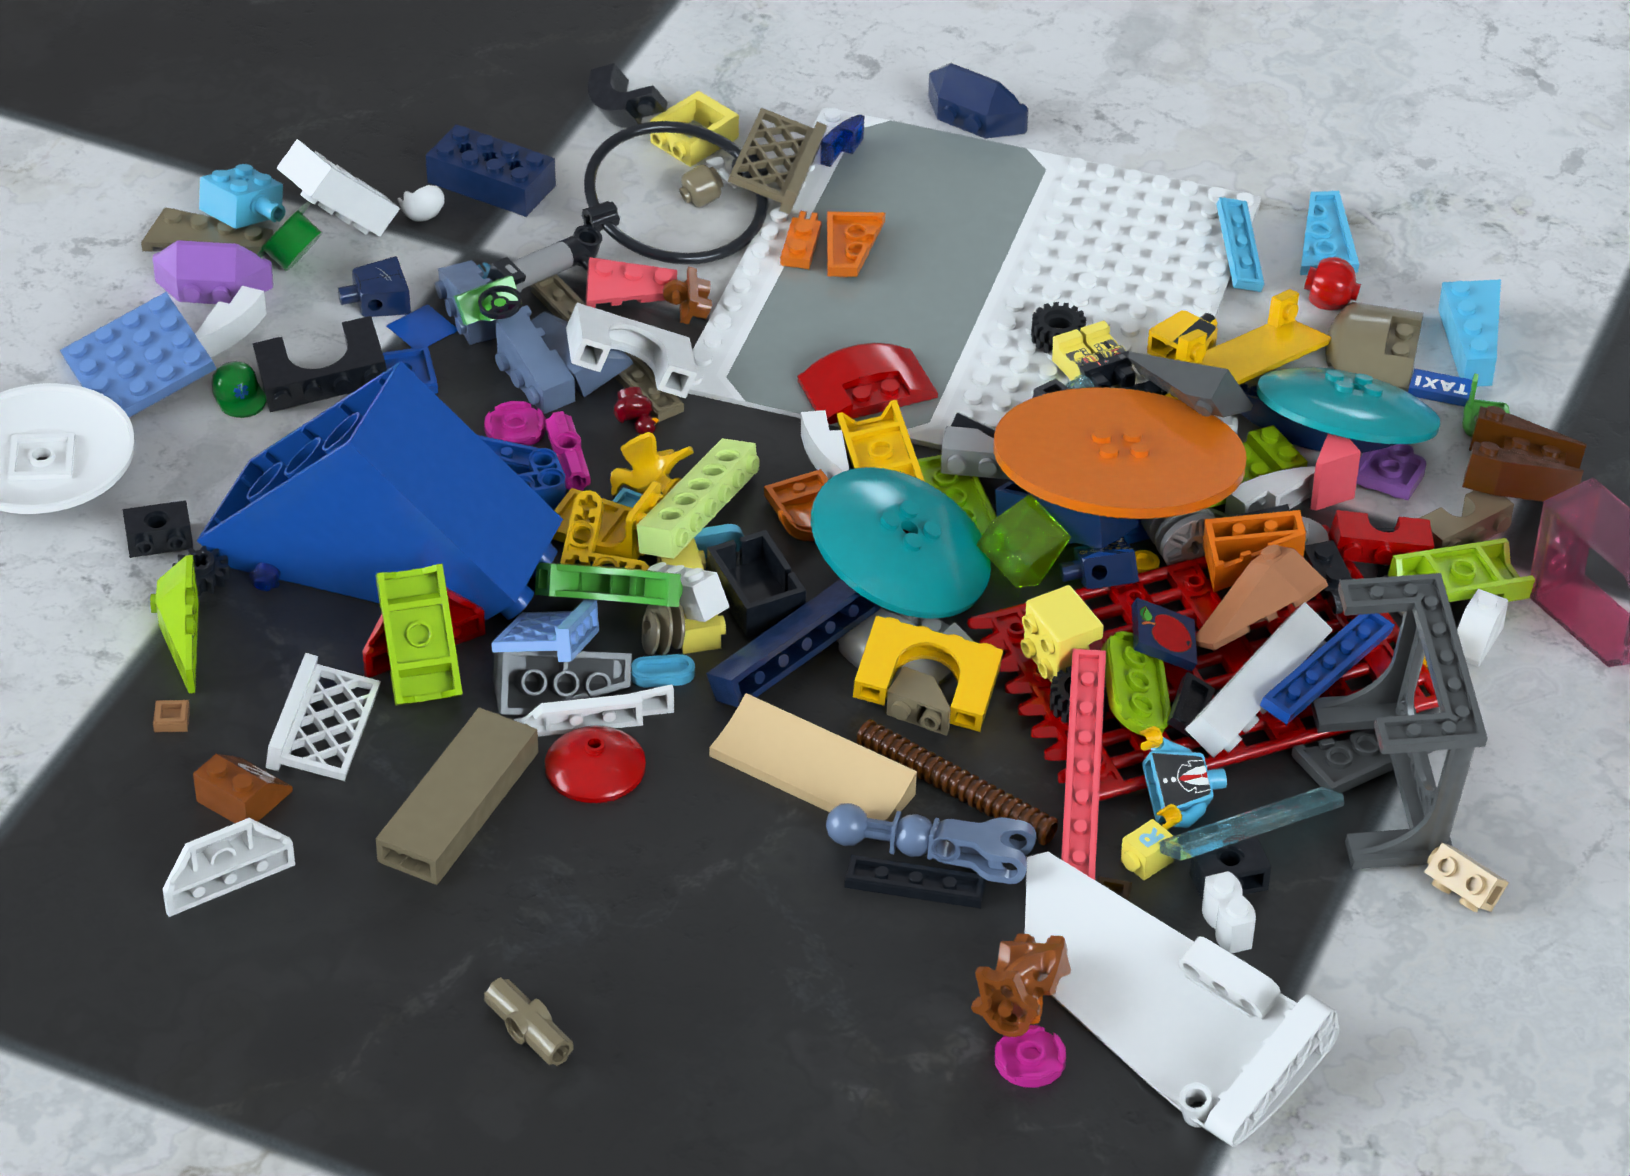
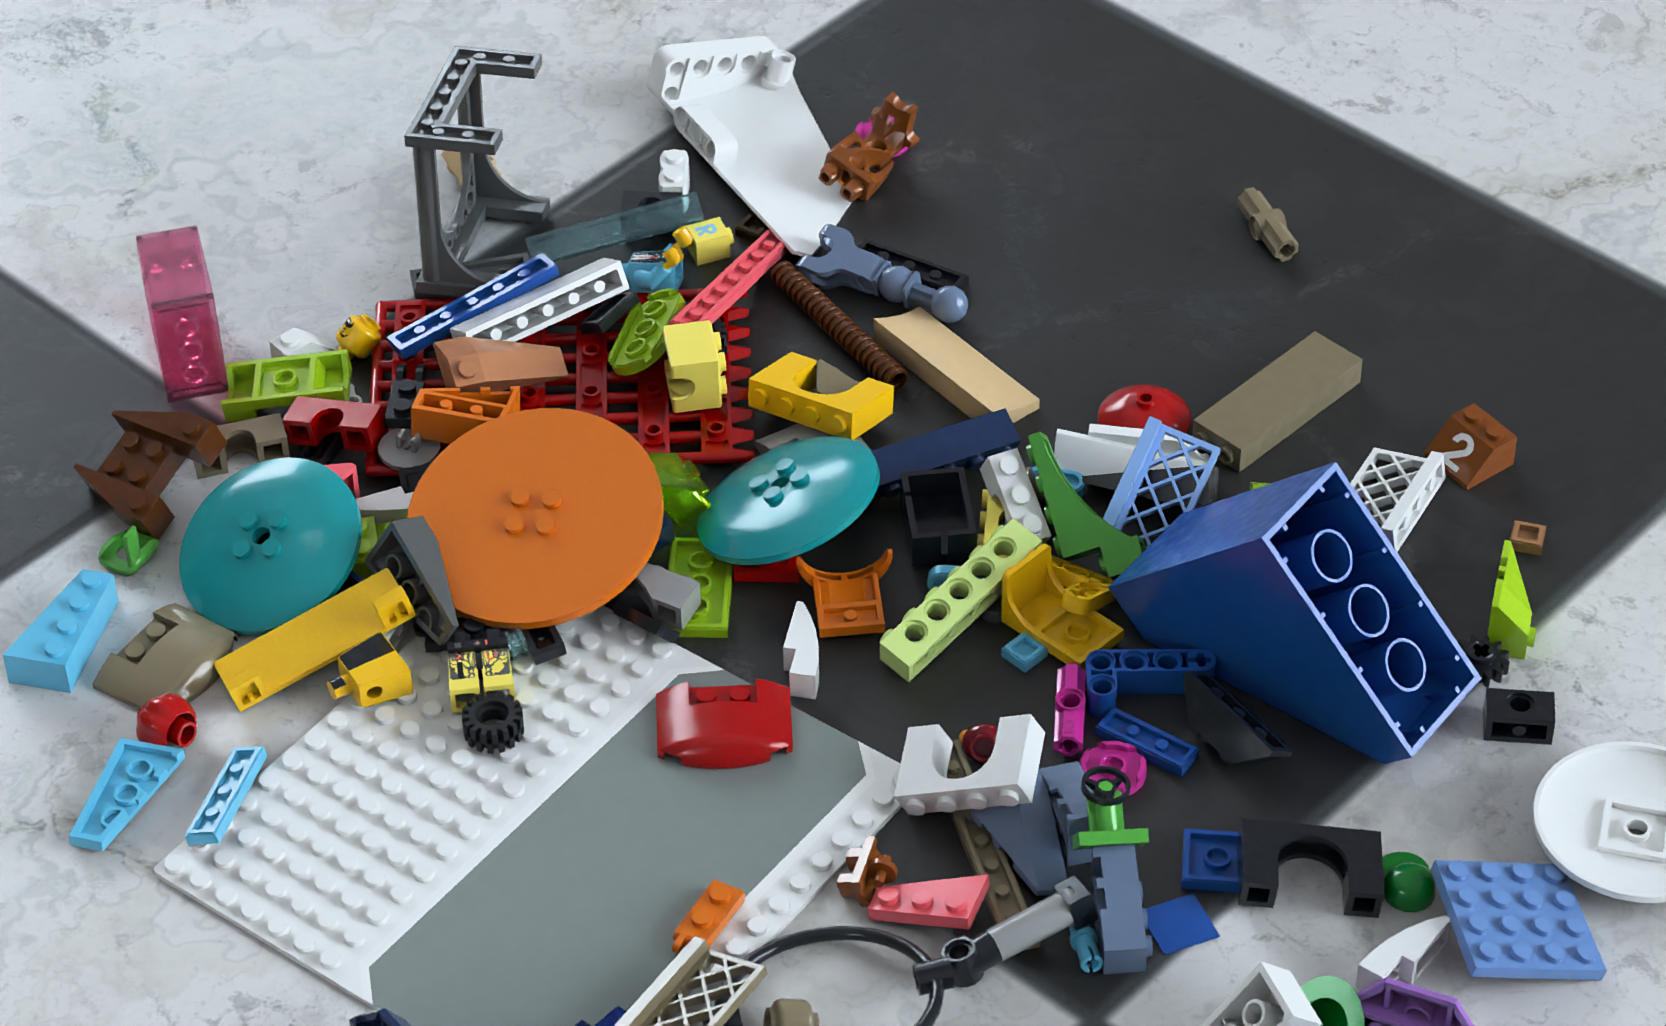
camera: 160 degrees left, 0 degrees up
(225, 863) = (1497, 377): white wedge -> none
(378, 289) = (1218, 962): dark blue torso -> none
(647, 465) = (992, 658): yellow animal -> none
(850, 240) = (657, 897): orange wing -> none
(880, 442) = (752, 626): yellow piece -> none
(1164, 634) = (596, 365): dark blue tile -> none
(1440, 387) = (143, 593): blue tile -> none

